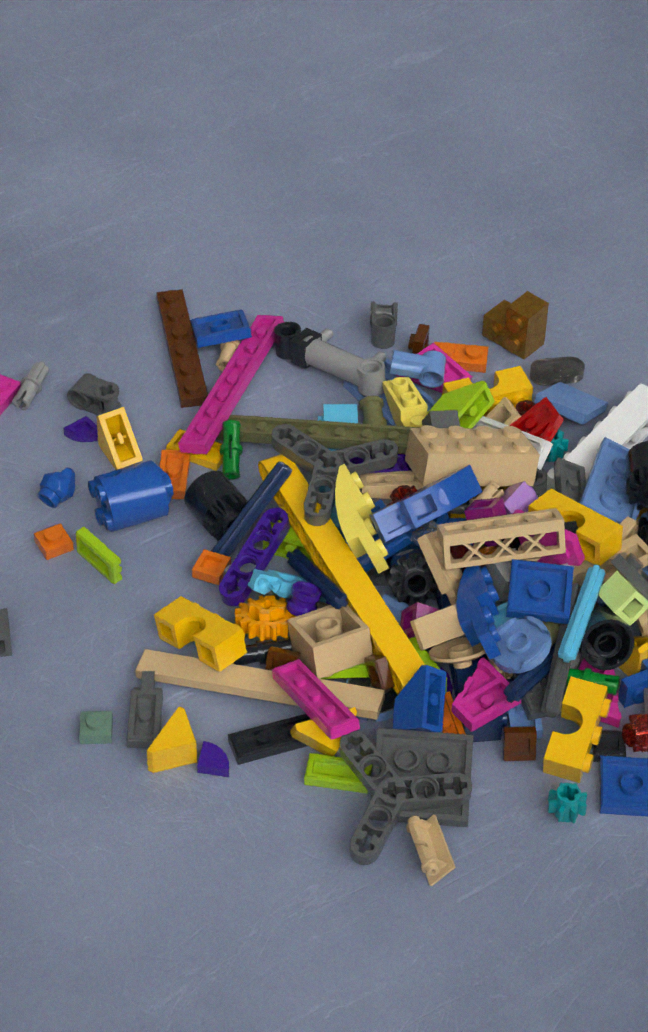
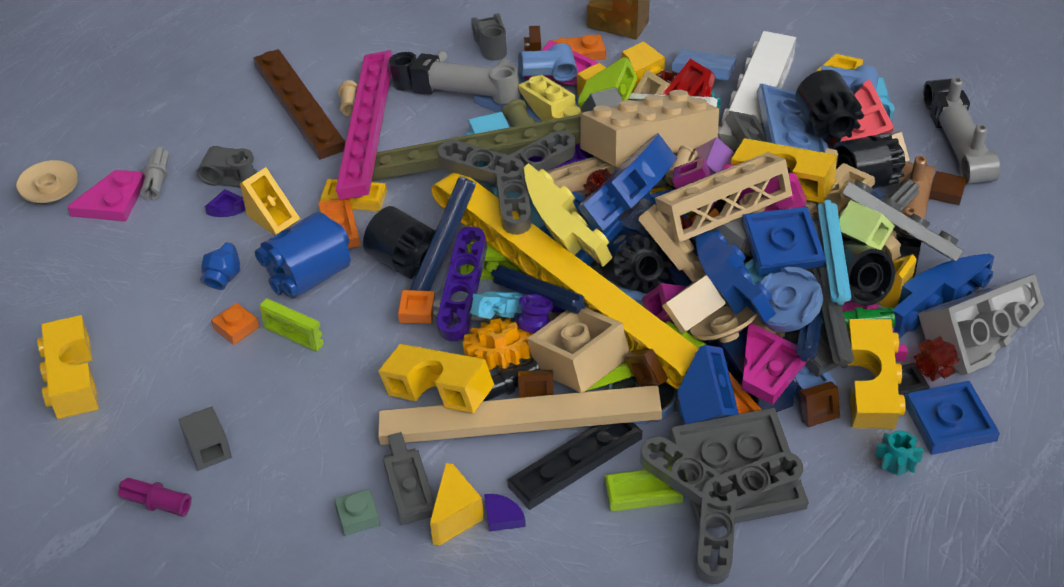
camera: 15 degrees left, 0 degrees up
(220, 328) = (333, 74): blue tile -> none
(230, 464) = (385, 169): green pin -> none
(314, 737) = (618, 449): yellow slope -> none
(315, 699) = (596, 415): dark pink tile -> none
(431, 848) = (783, 544): tan hinge -> none
(552, 370) = (675, 39): clear smoke plate -> none

